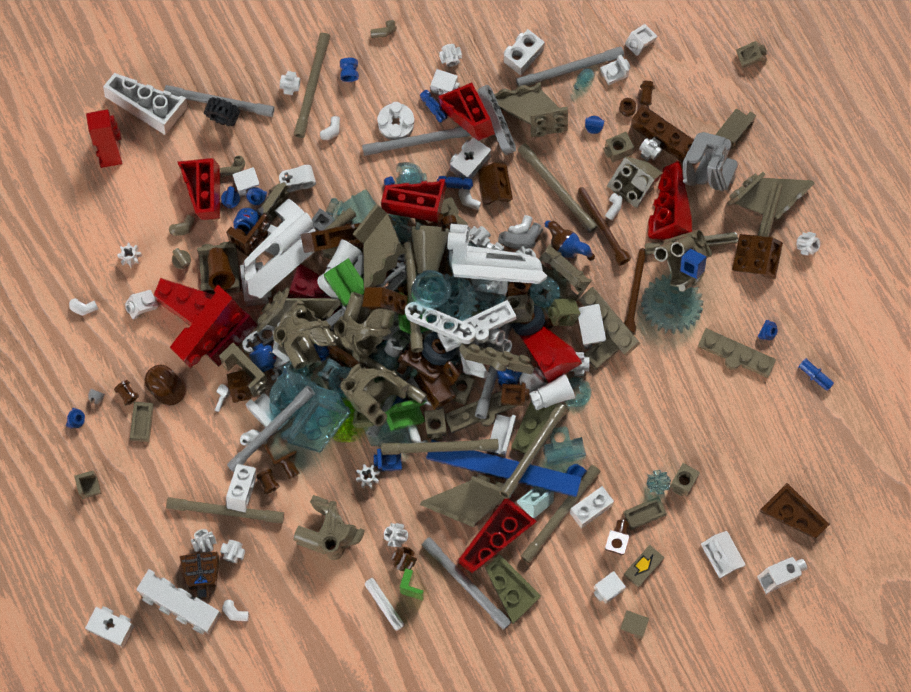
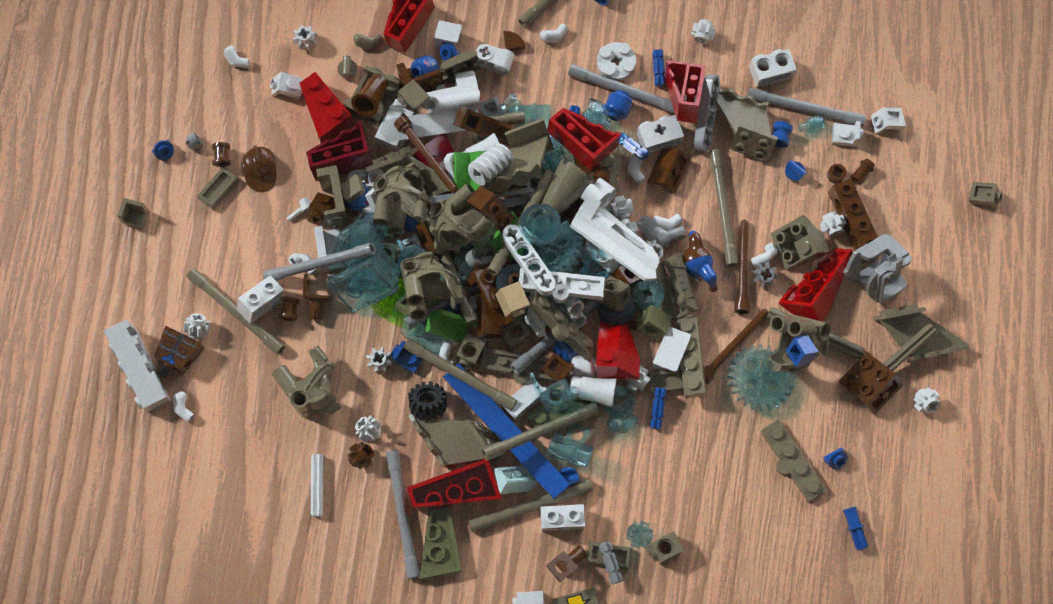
camera: 30 degrees right, 0 degrees up
(118, 634) = (57, 343): white brick -> none
(207, 327) = (323, 138): red wedge -> none
(230, 198) = (425, 41): blue plate -> none
(232, 551) = (215, 351): white gear -> none
(236, 167) = (452, 16): dark tan arm -> none
(257, 352) = (353, 188): none -> dark tan tile
(258, 248) = (413, 95): none -> dark tan panel
(266, 277) = (404, 126): none -> reddish brown piece
(301, 155) = (513, 41): none -> reddish brown tile
(360, 266) = (490, 164): none -> white piece
(406, 583) = (346, 480): bright green panel -> none
(422, 155) = (619, 105): none -> blue head
(431, 491) = (430, 409): none -> black tyre
(444, 82) = (681, 51): white brick -> none
(449, 361) = (512, 300): none -> tan brick
(529, 410) = (559, 389): none -> clear light blue piece
(564, 99) = (782, 131): none -> blue wheel
(590, 408) = (622, 426): none -> clear light blue arm
(609, 377) = (658, 408): none -> blue axle
(622, 140) = (809, 198): dark tan brick -> none
(628, 217) = (759, 277): none -> light grey gear
(650, 517) = (610, 562): none -> light grey axle
(736, 126) = (927, 252): dark tan panel -> none

